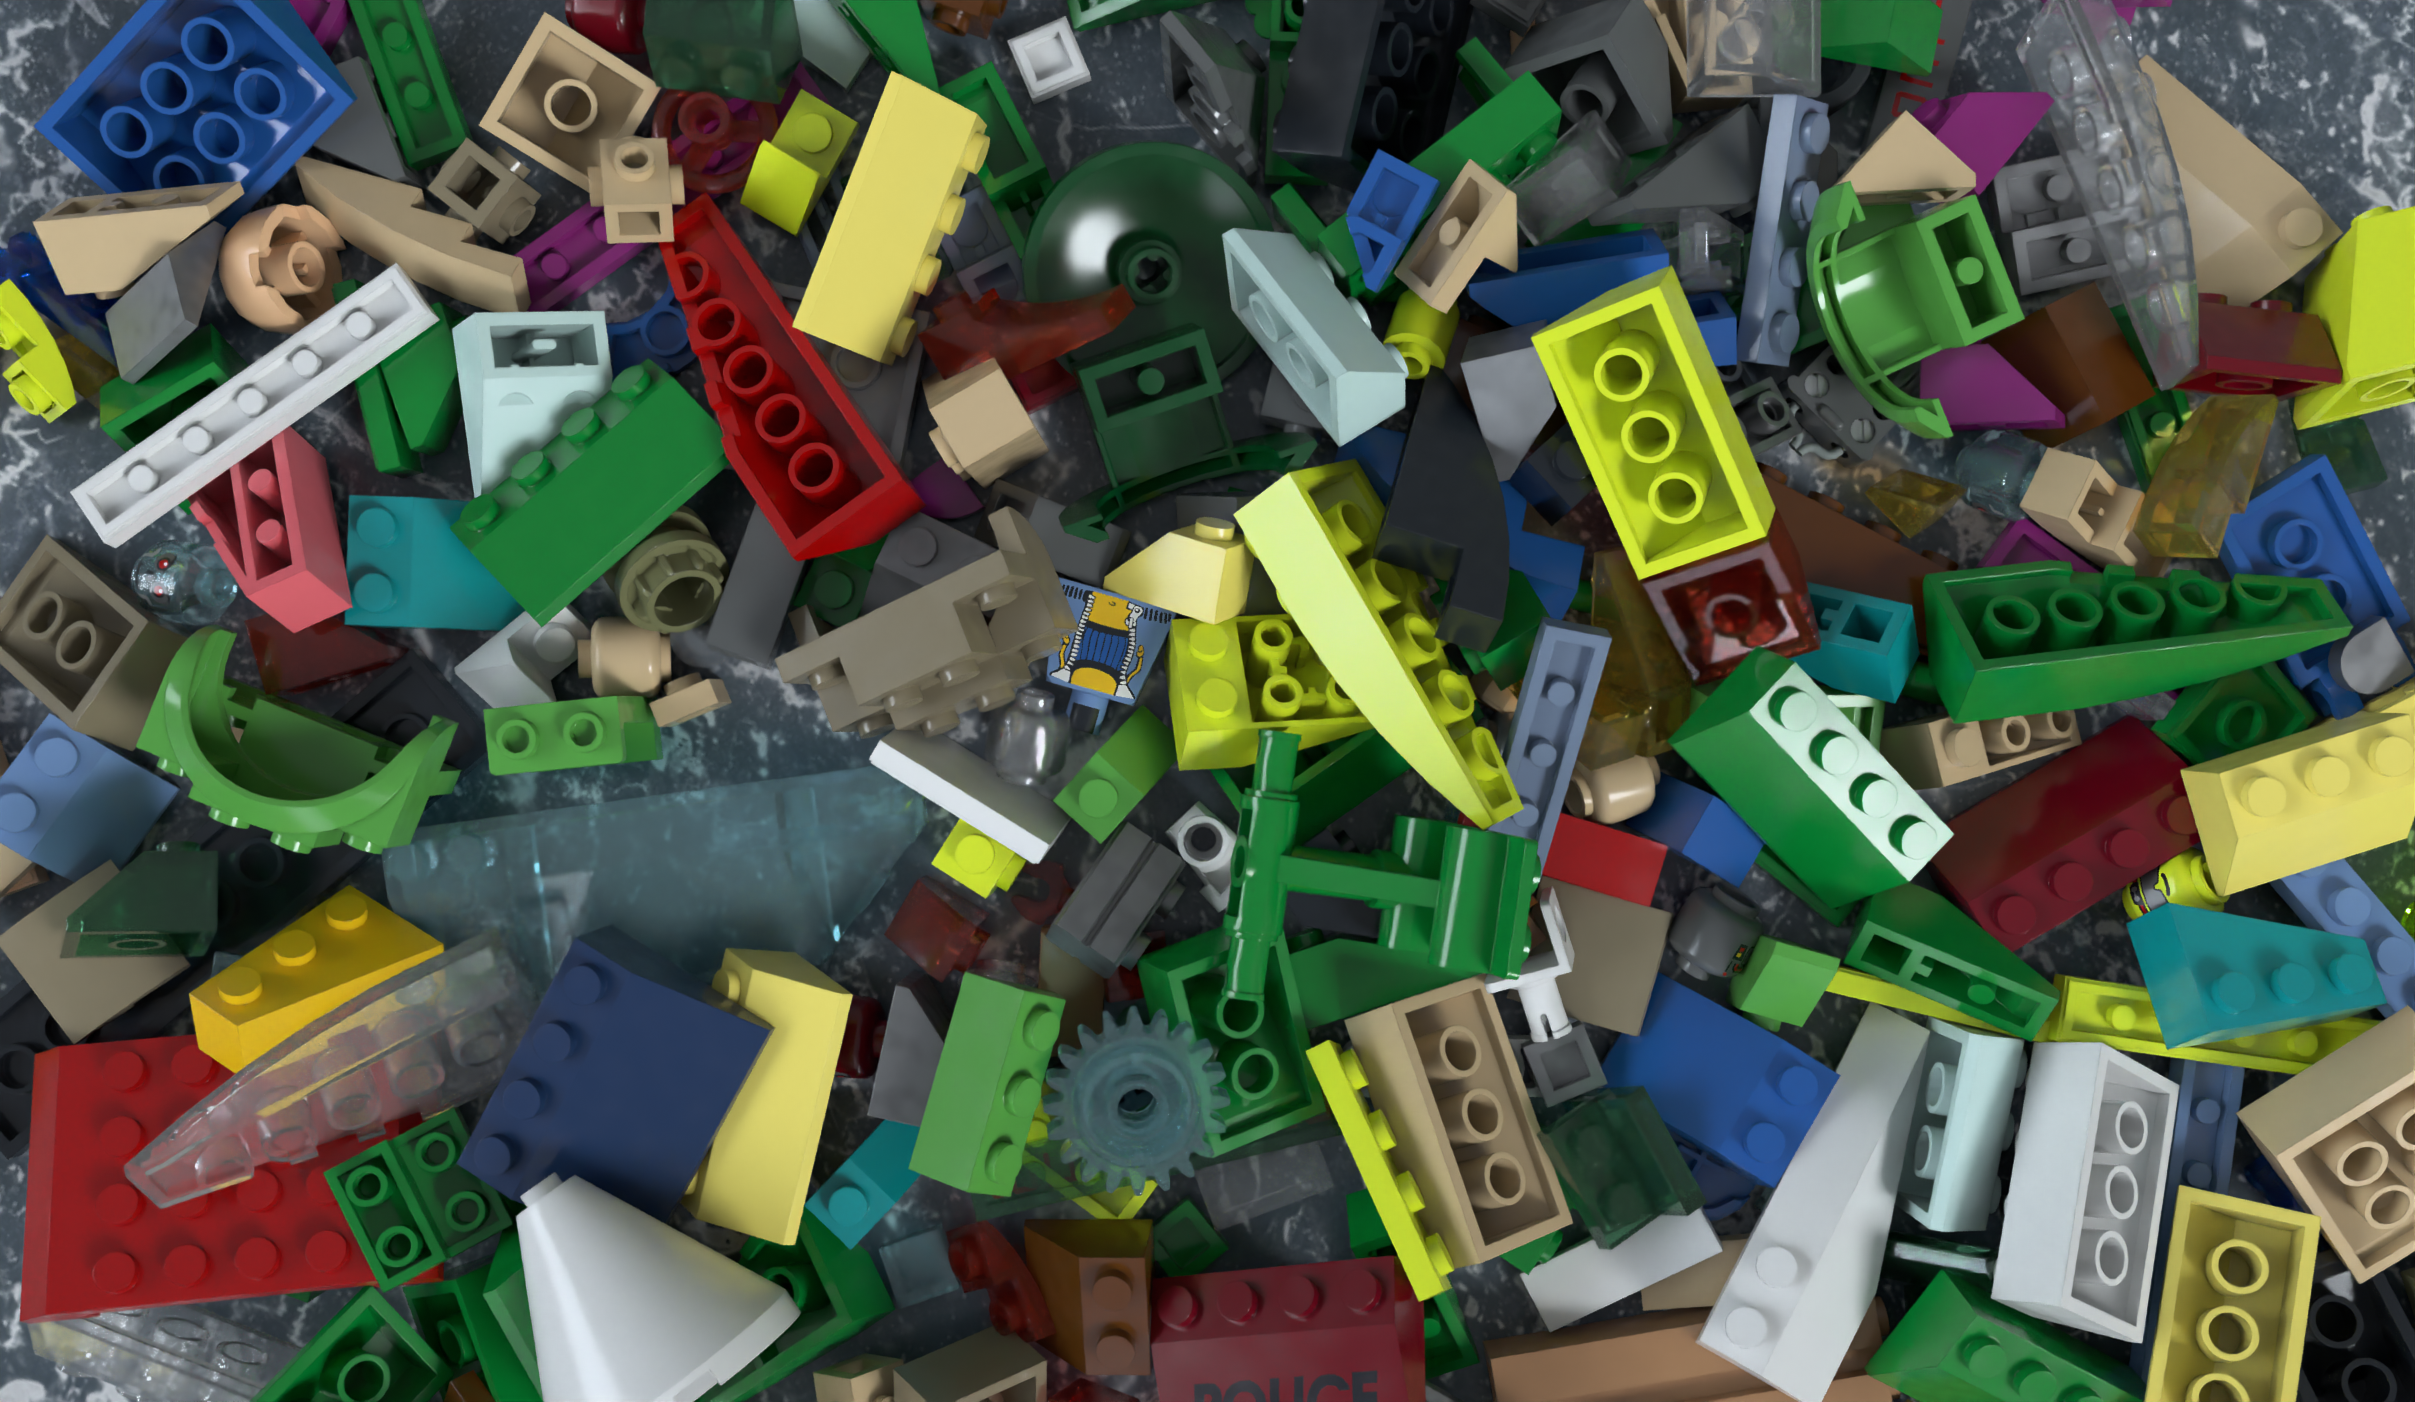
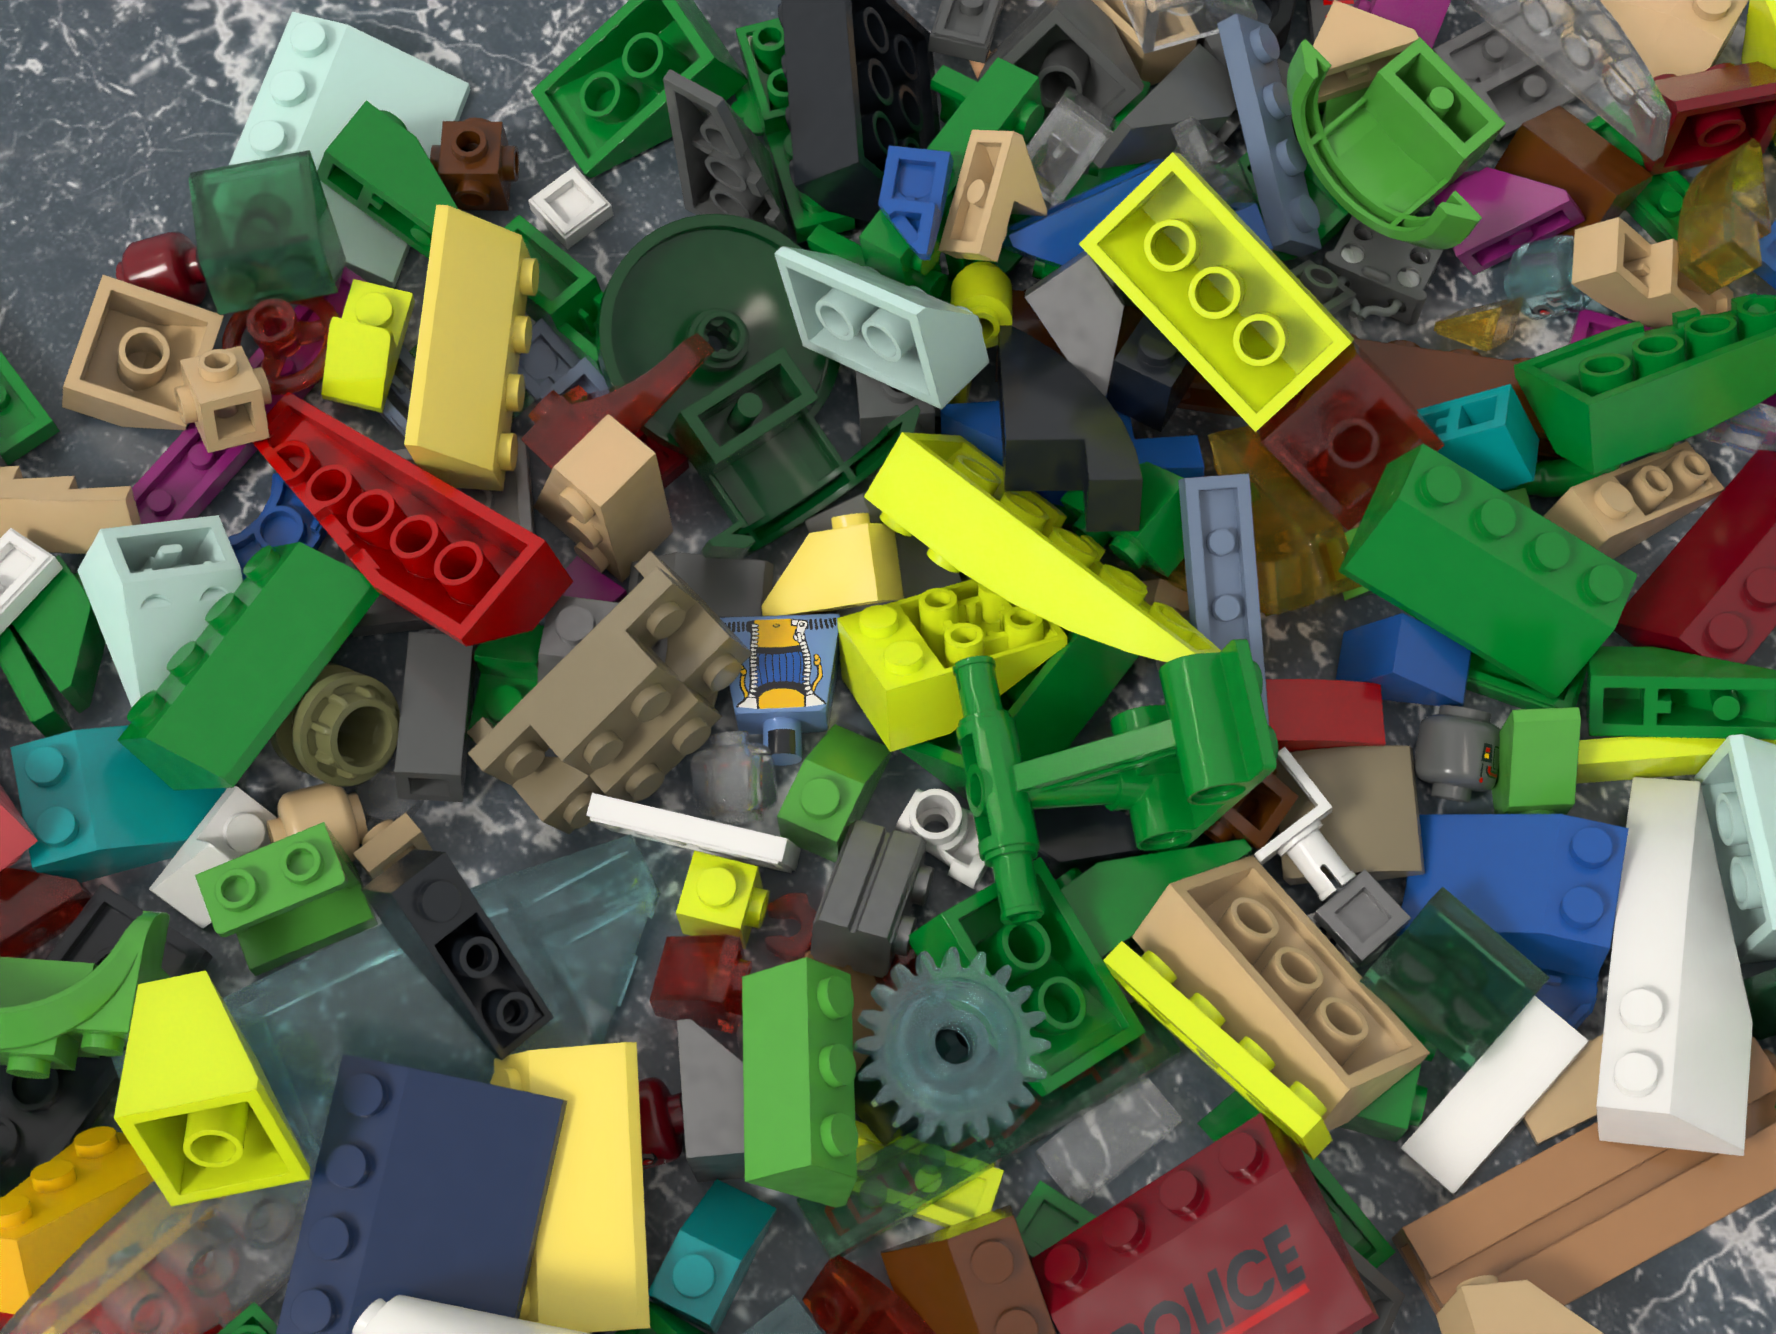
camera: 10 degrees left, 20 degrees down
(435, 940) = (200, 1099): none -> neon yellow slope
(486, 191) = (80, 446): dark tan brick -> none
(713, 850) = (457, 948): none -> black slope
(1613, 791) = (1306, 644): tan head -> none

